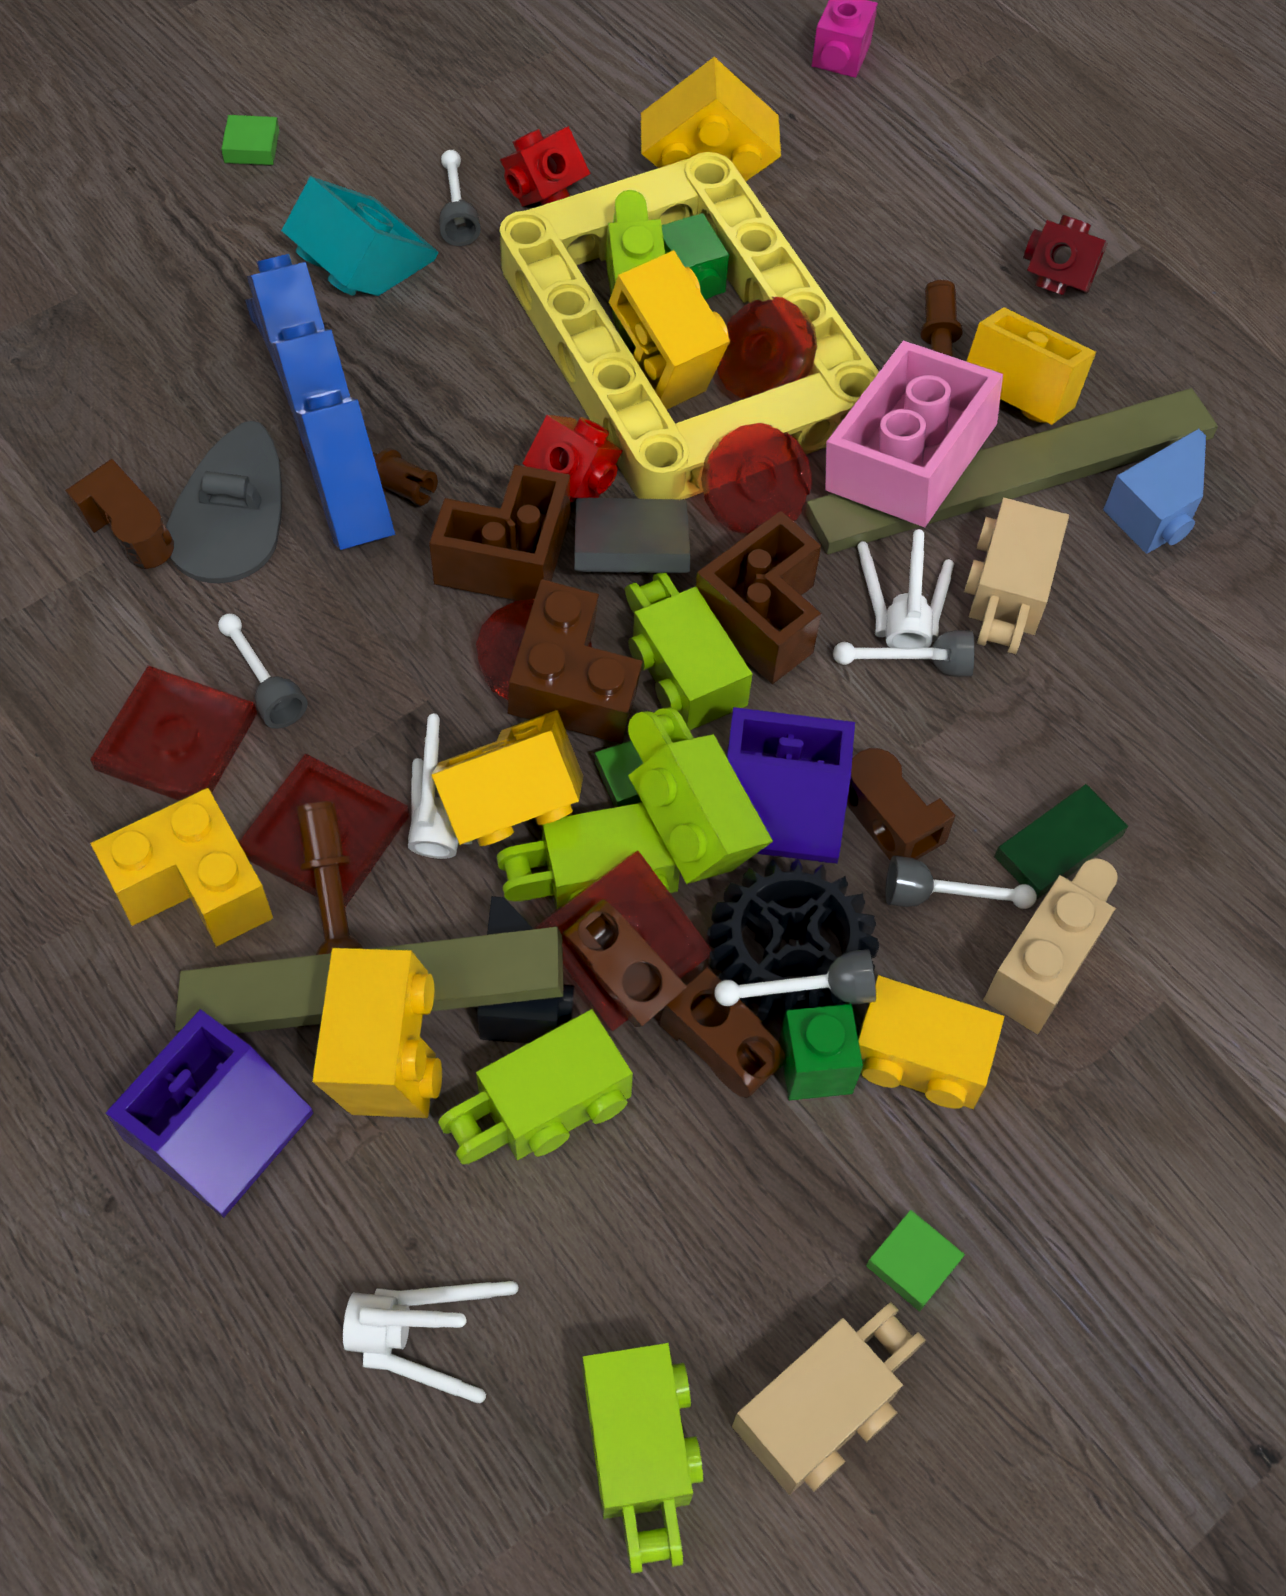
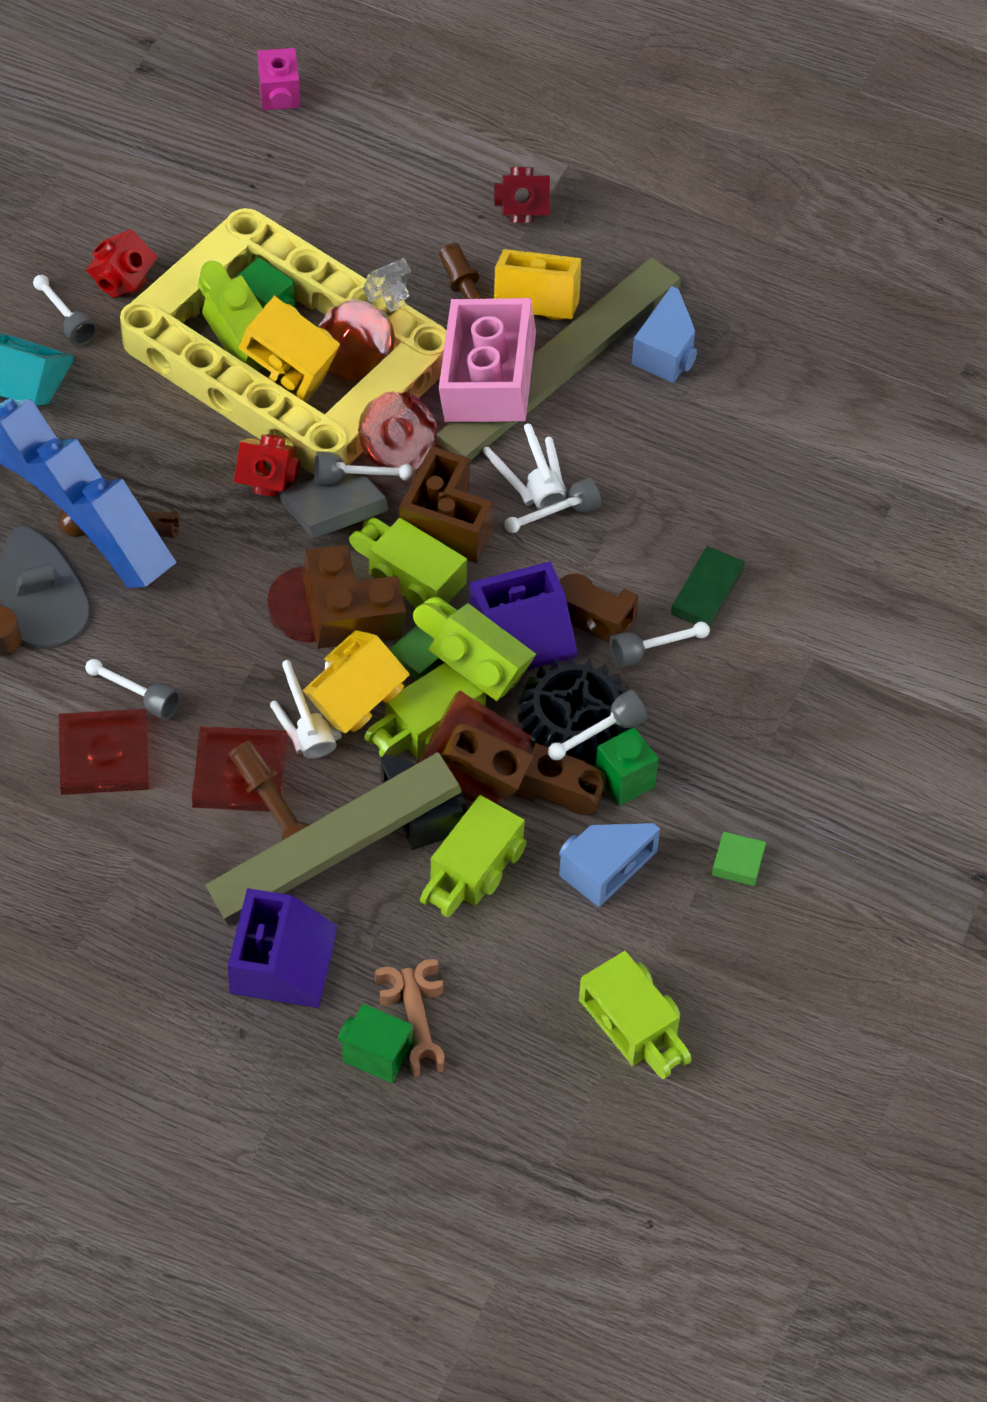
camera: 25 degrees left, 5 degrees down
(184, 856) = (170, 814): yellow brick -> none
(258, 1312) = (376, 1042): none -> green brick
(357, 1241) = (411, 985): none -> nougat bar
(371, 1037) = (368, 867): yellow brick -> none
(383, 1321) = (451, 1018): white plant -> none
(508, 547) = (257, 542): reddish brown brick -> none
(648, 492) = (330, 469): none -> hinge
(714, 115) = (224, 183): yellow brick -> none
(725, 1176) = (606, 857): none -> medium blue slope
(826, 1400) = (726, 948): tan brick -> none
(837, 293) = (389, 283): none -> clear tile
(928, 1044) = (689, 735): yellow brick -> none
(1016, 571) = (597, 427): tan brick -> none
(1054, 946) = (734, 649): tan brick -> none

